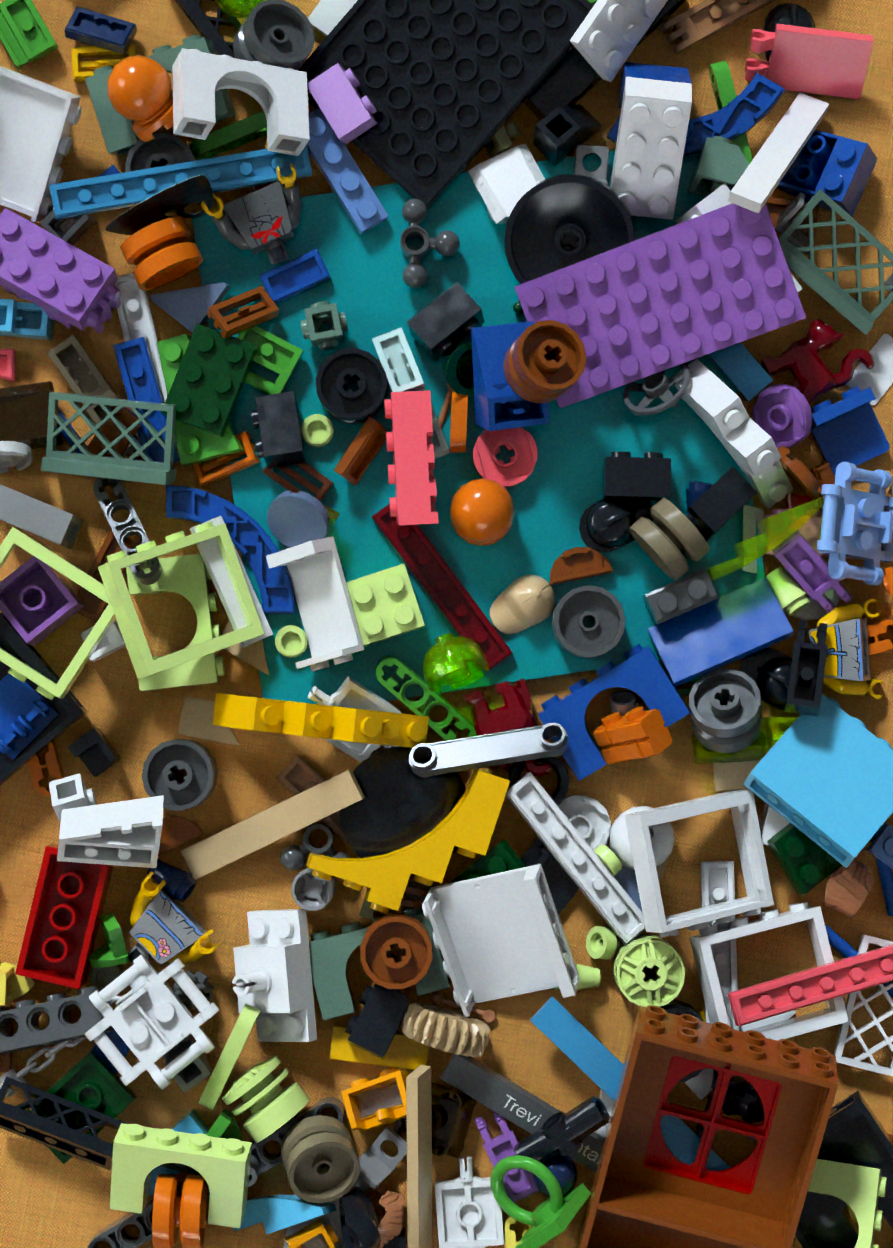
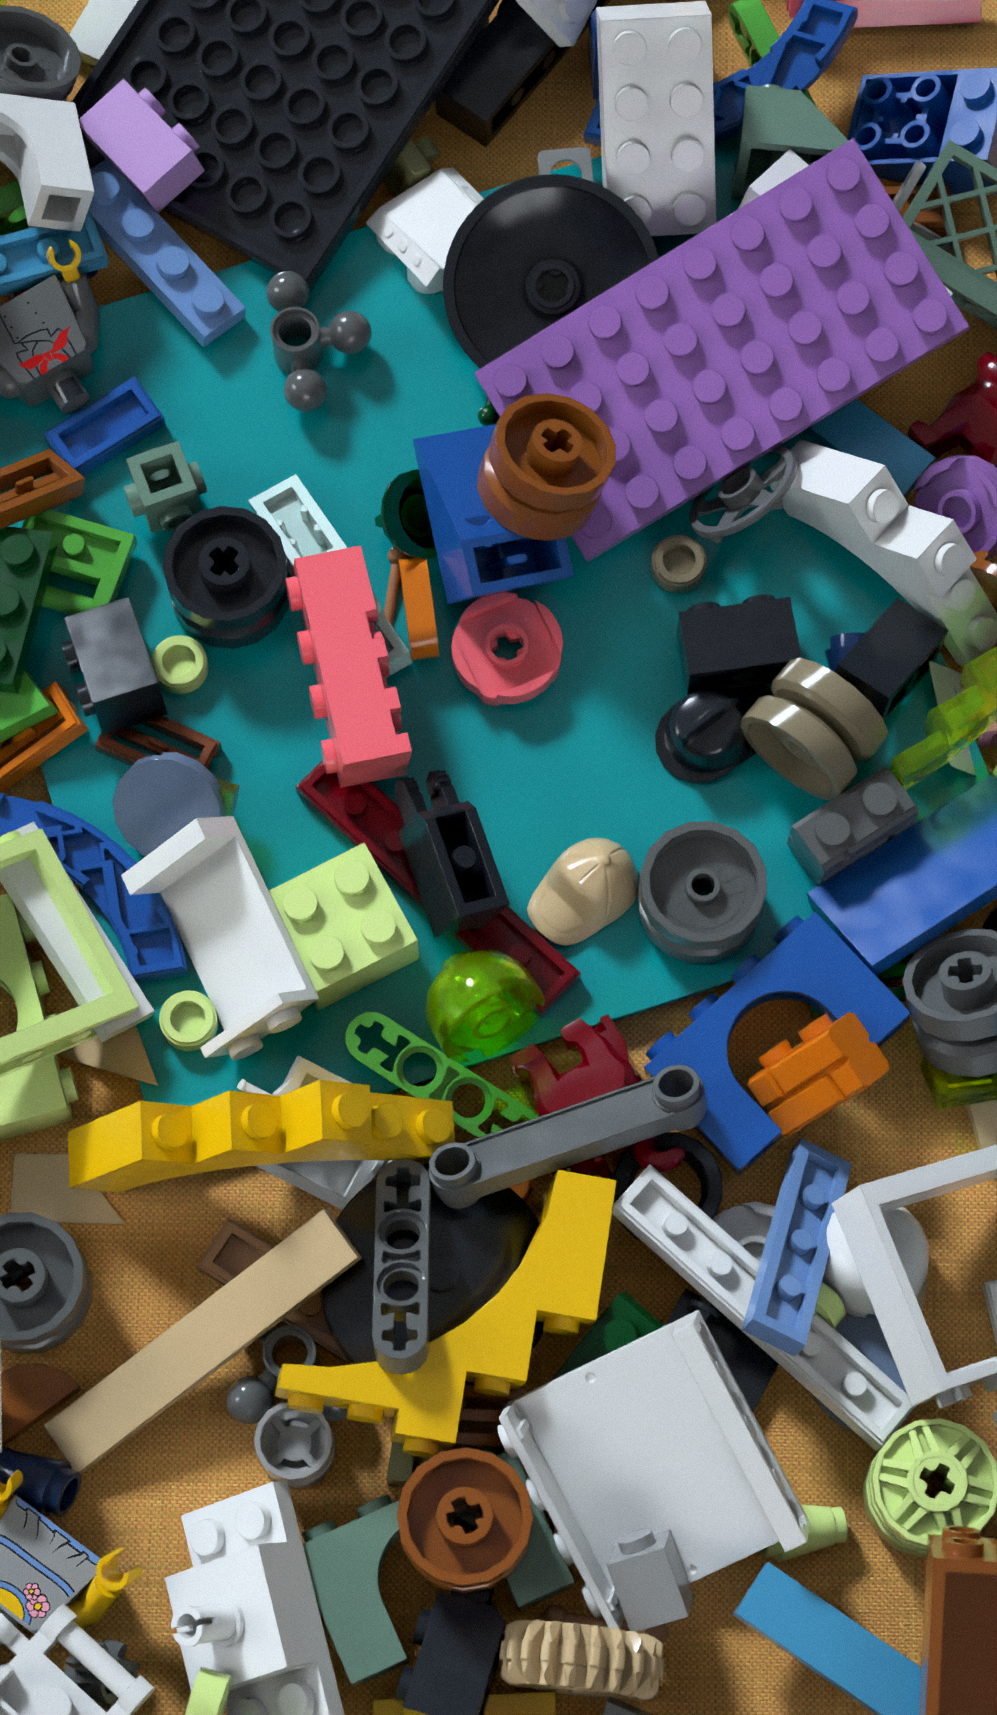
camera: 10 degrees left, 15 degrees down
(361, 451) = (261, 681): dark orange tile -> none
(382, 807) = (404, 1264): none -> dark grey beam
(446, 322) = (366, 450): black brick -> none
(450, 578) = (449, 856): none -> black hinge
(482, 512) = (485, 741): orange tile -> none
(489, 994) = (649, 1579): none -> light grey brick
(563, 131) = (508, 135): black slope -> none
(578, 564) = (666, 805): dark orange tile -> none
(601, 942) = (836, 1457): yellowish green tile -> none
(602, 830) = (796, 1248): none -> medium blue plate
(612, 418) = (678, 564): none -> dark tan tile
(622, 702) = (786, 1026): light grey hinge -> none
(778, 153) = (866, 96): white tile -> none

